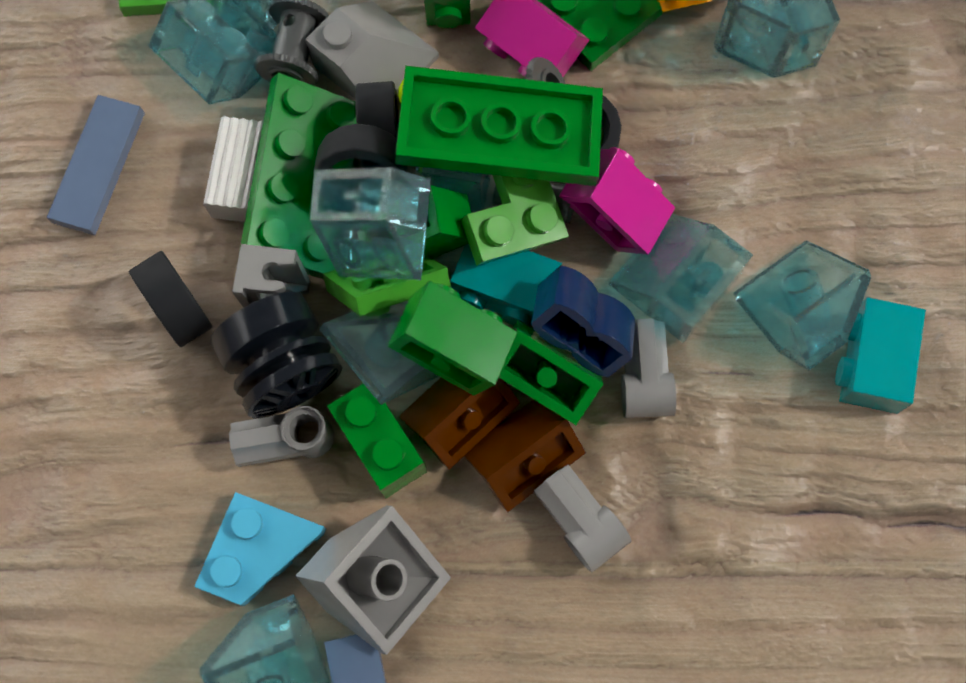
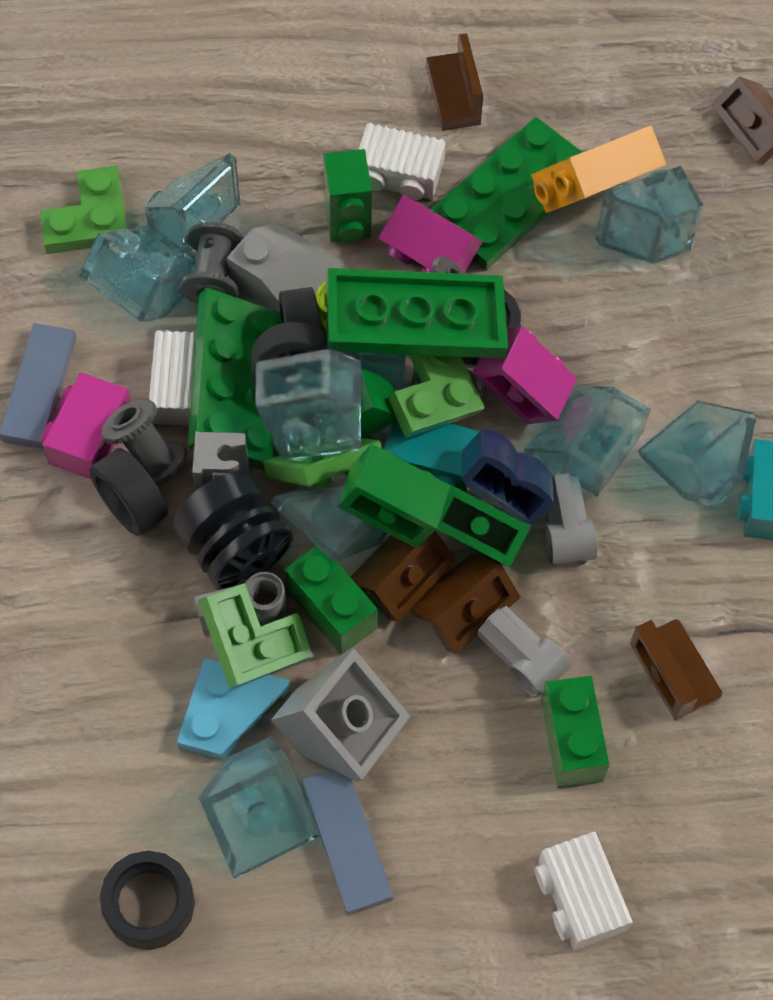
camera: 10 degrees left, 10 degrees down
(139, 214) = (75, 436): none -> dark pink brick
(182, 229) = (134, 429): none -> dark grey hose
(276, 490) = (244, 645): none -> bright green plate
(628, 619) = (574, 731): none -> green brick
(748, 550) = (675, 667): none -> reddish brown panel

